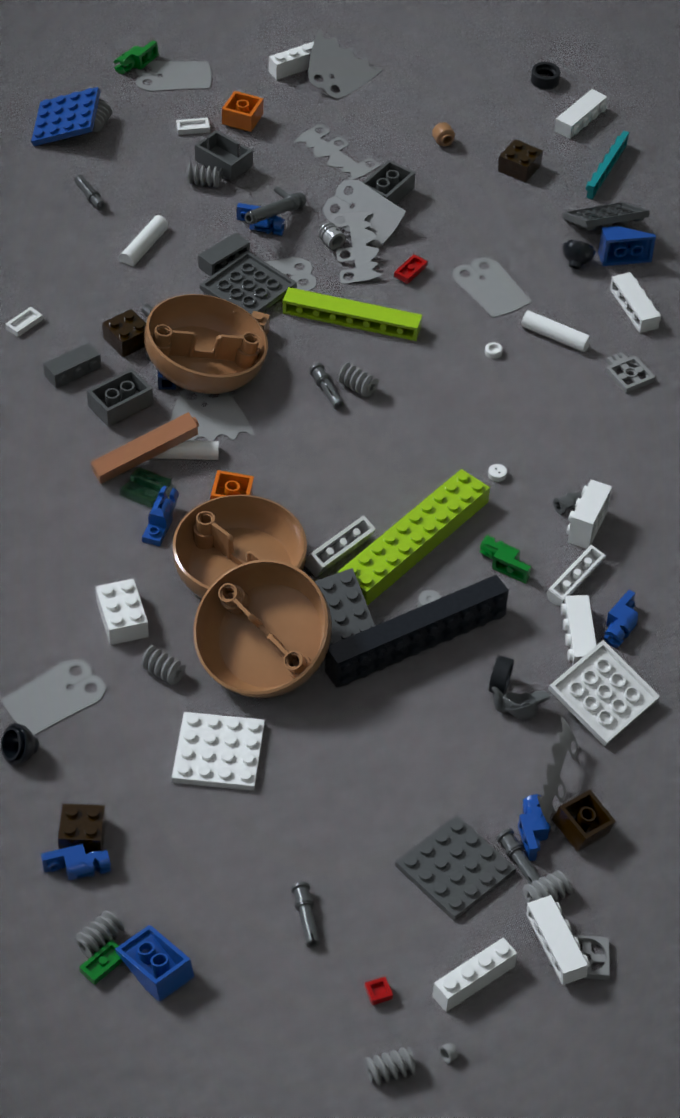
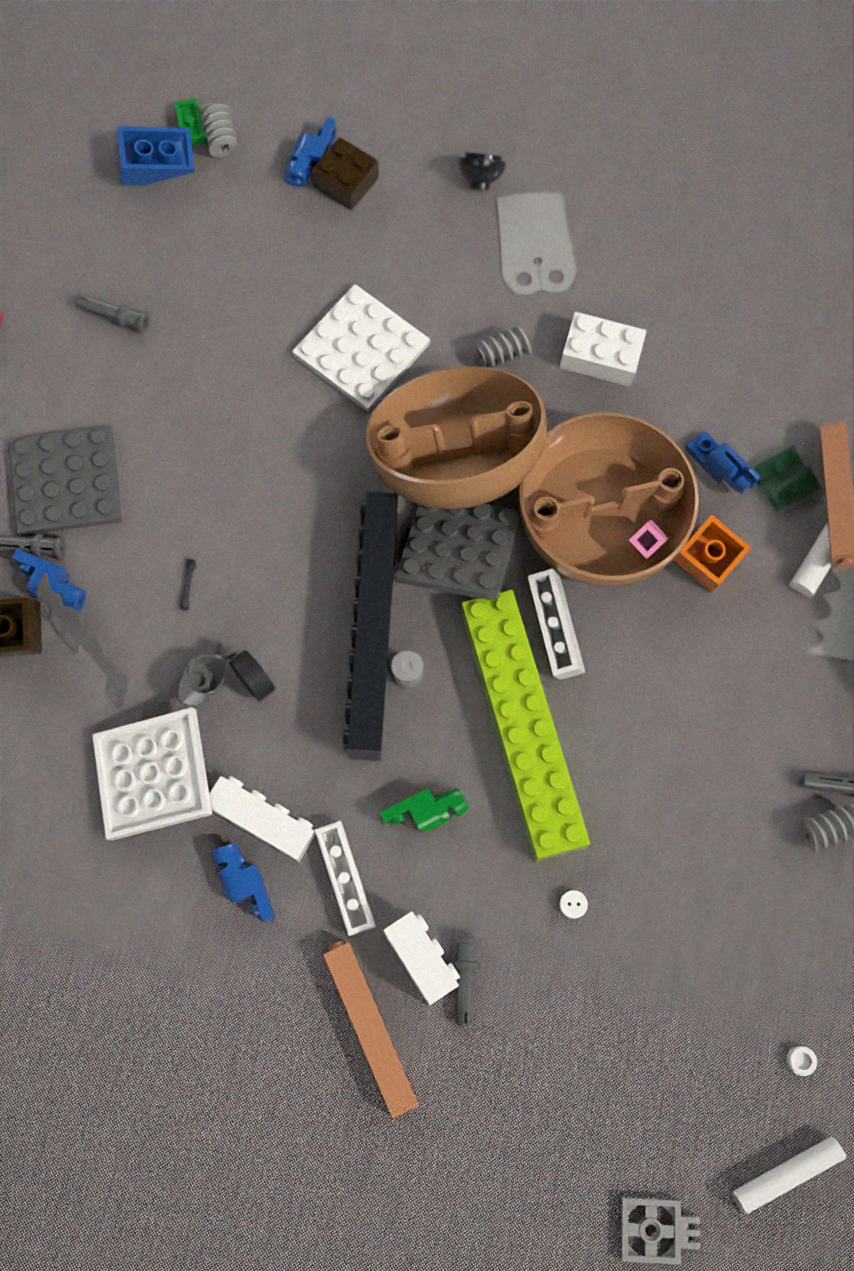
camera: 120 degrees right, 25 degrees up
(249, 520) = (649, 539): none -> bright pink brick
(454, 761) = (191, 565): none -> black hinge
(643, 524) = (370, 1029): none -> nougat brick

